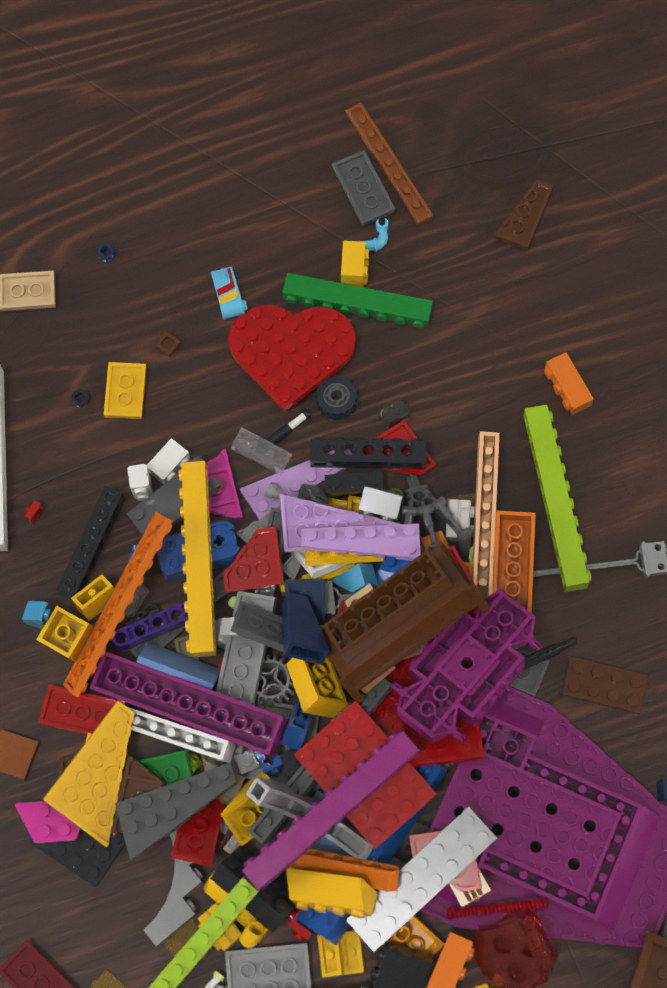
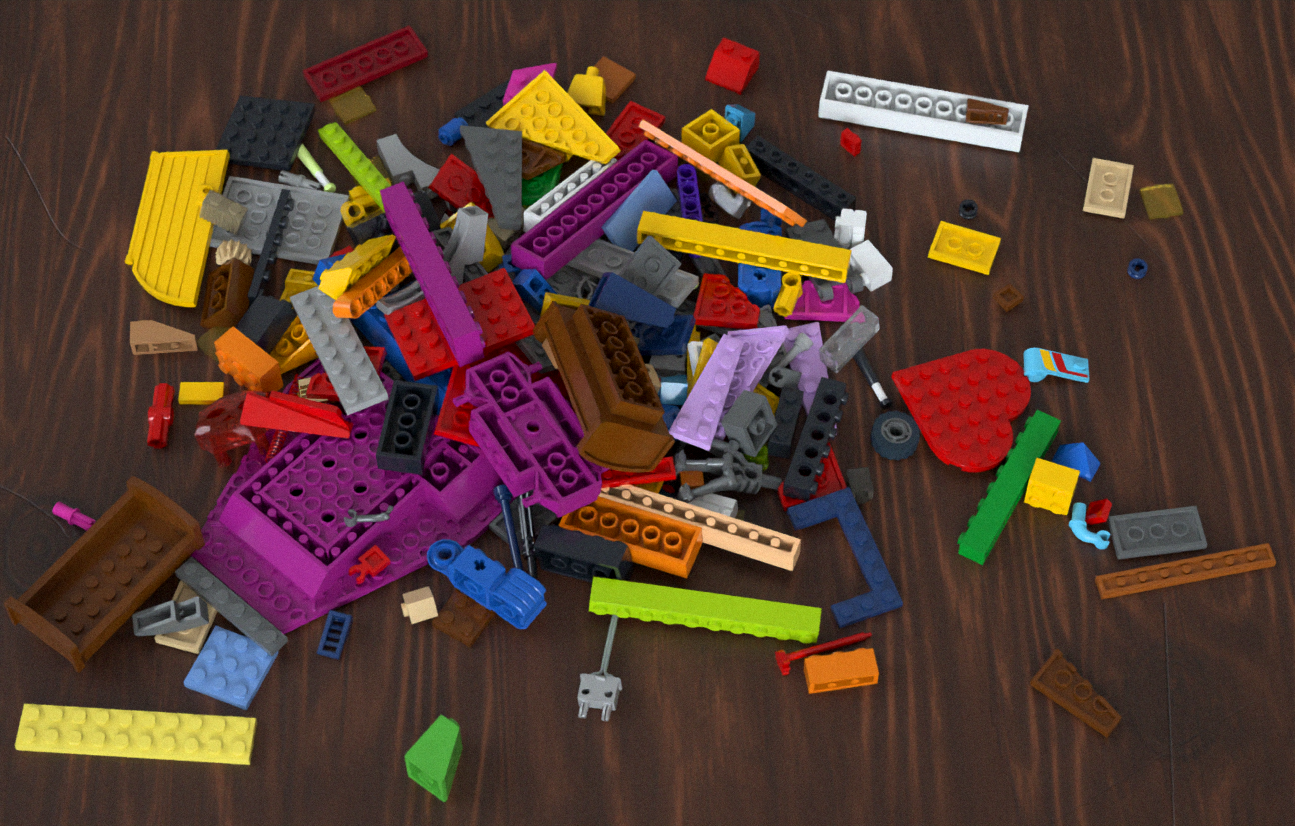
camera: 105 degrees right, 15 degrees down
(26, 249) = (1161, 201): none -> clear yellow piece
(40, 763) = (589, 91): none -> yellow torso
(118, 879) = (450, 132): none -> blue brick
(234, 515) = (788, 294): none -> yellow piece
(314, 260) = (1079, 458): none -> blue slope
(359, 231) = (1098, 512): none -> red plate
(486, 371) = (883, 592): none -> dark blue plate
(487, 782) = (407, 427): none -> black brick
(511, 889) = (294, 414): none -> wedge
(540, 672) = (503, 496): none -> dark blue piece
(547, 600) = (582, 555): none -> black brick
(572, 429) = (784, 659): none -> red piece
(579, 783) = (366, 518): none -> dark grey piece
(604, 654) = (511, 594): none -> blue brick
(612, 777) = (370, 562): none -> red plate
(632, 726) = (419, 605): none -> tan brick

